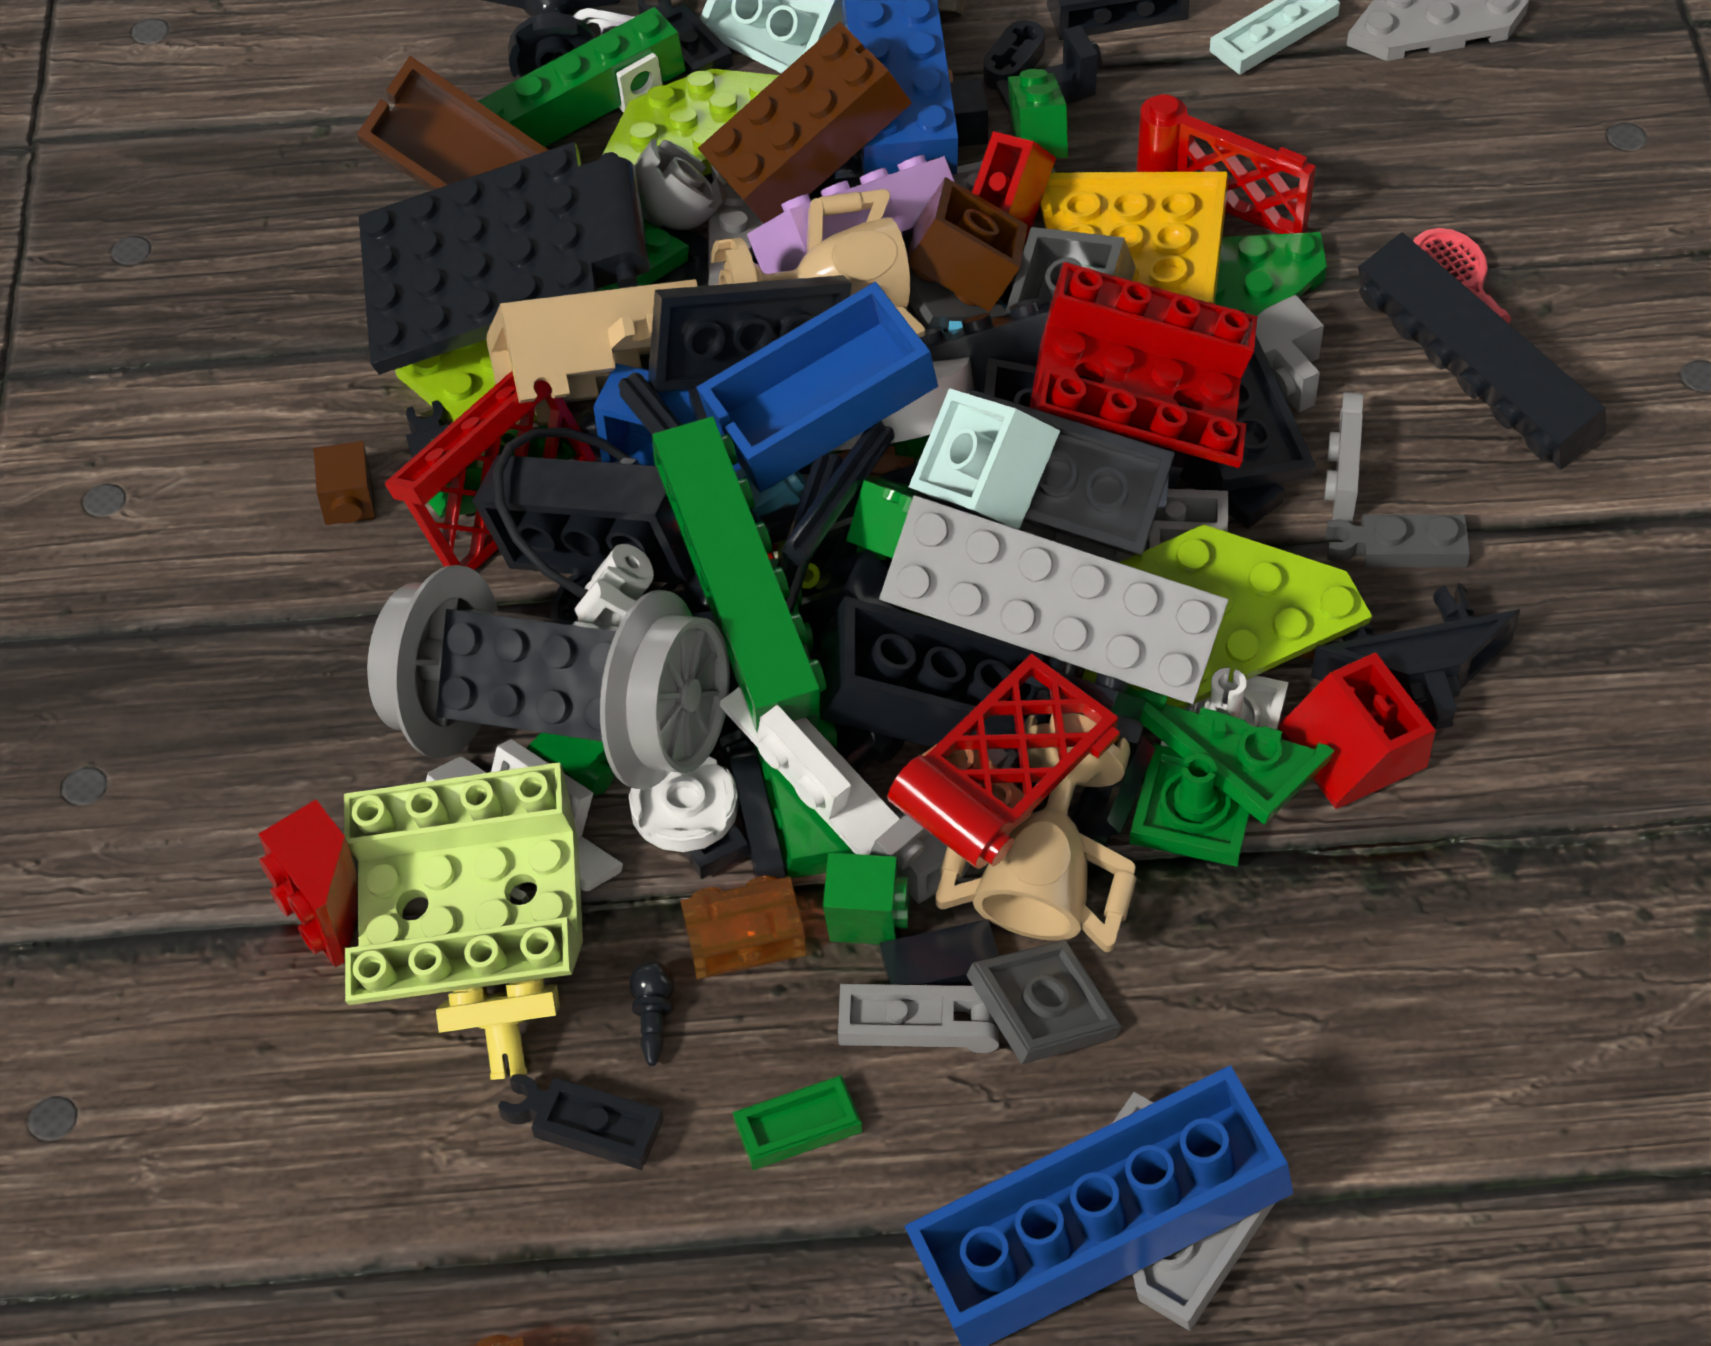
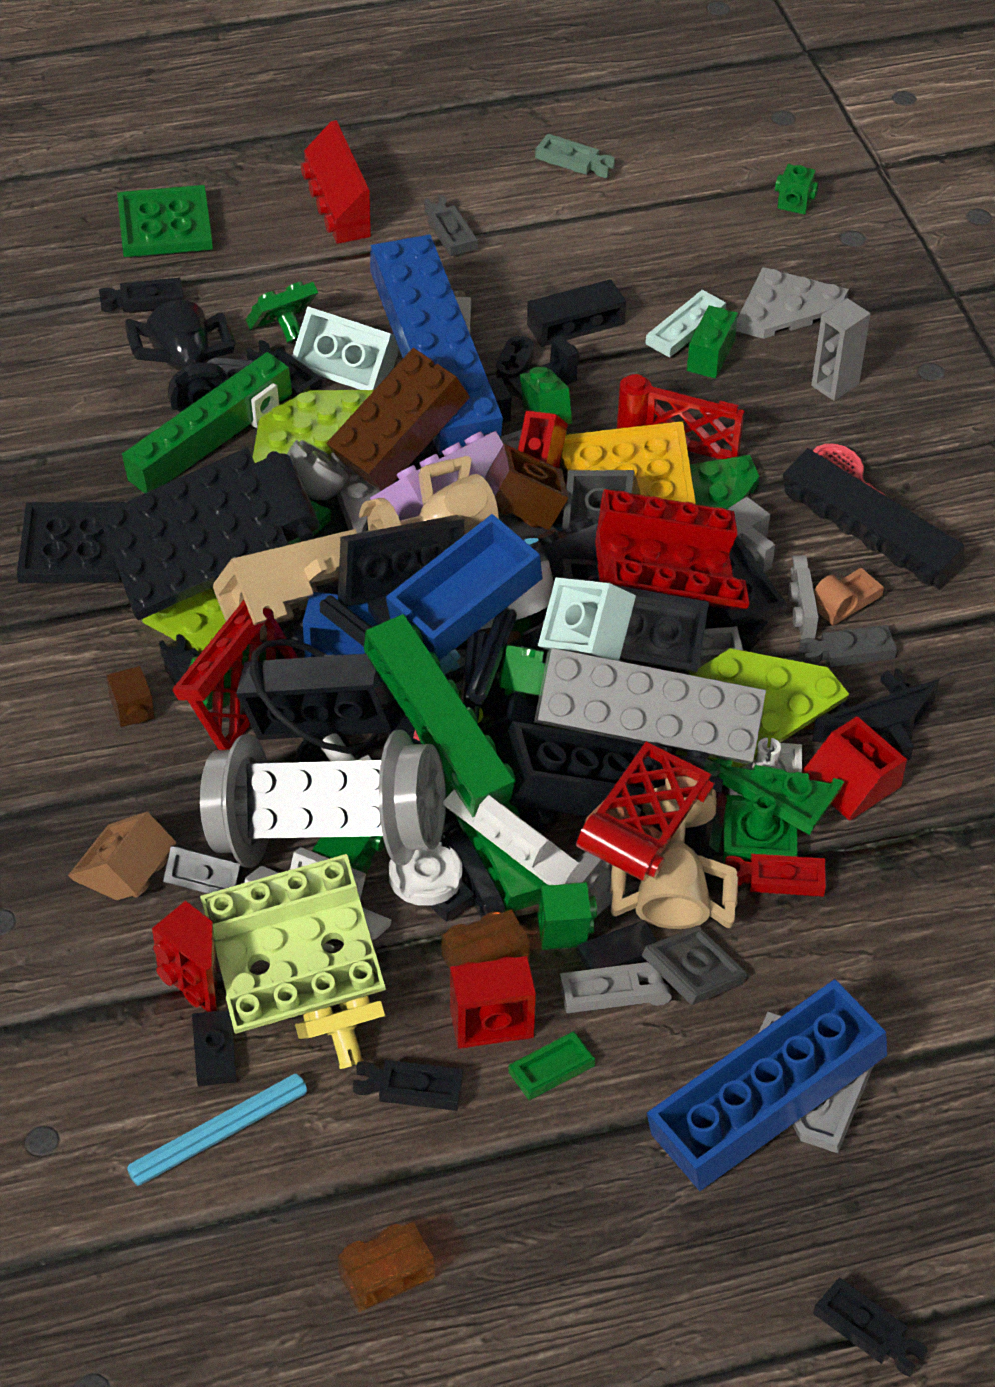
camera: 15 degrees left, 5 degrees down
(273, 718) = (124, 857): none -> medium nougat slope
(292, 1143) = (216, 1129): none -> medium azure axle
(310, 251) = (65, 544): none -> black plate
(320, 1022) = (214, 1048): none -> black plate
(371, 752) = (201, 870): none -> plate
(440, 131) = (146, 451): reddish brown piece -> none
(615, 586) = (349, 738): white leg -> none
(651, 988) = (434, 995): black bar -> none
(724, 1014) = (492, 1001): none -> red brick
(1208, 878) = (781, 874): none -> red plate
(1304, 57) = (712, 341): none -> green brick
(1403, 465) = (844, 597): none -> nougat plate
(1486, 88) = (840, 349): none -> light grey brick

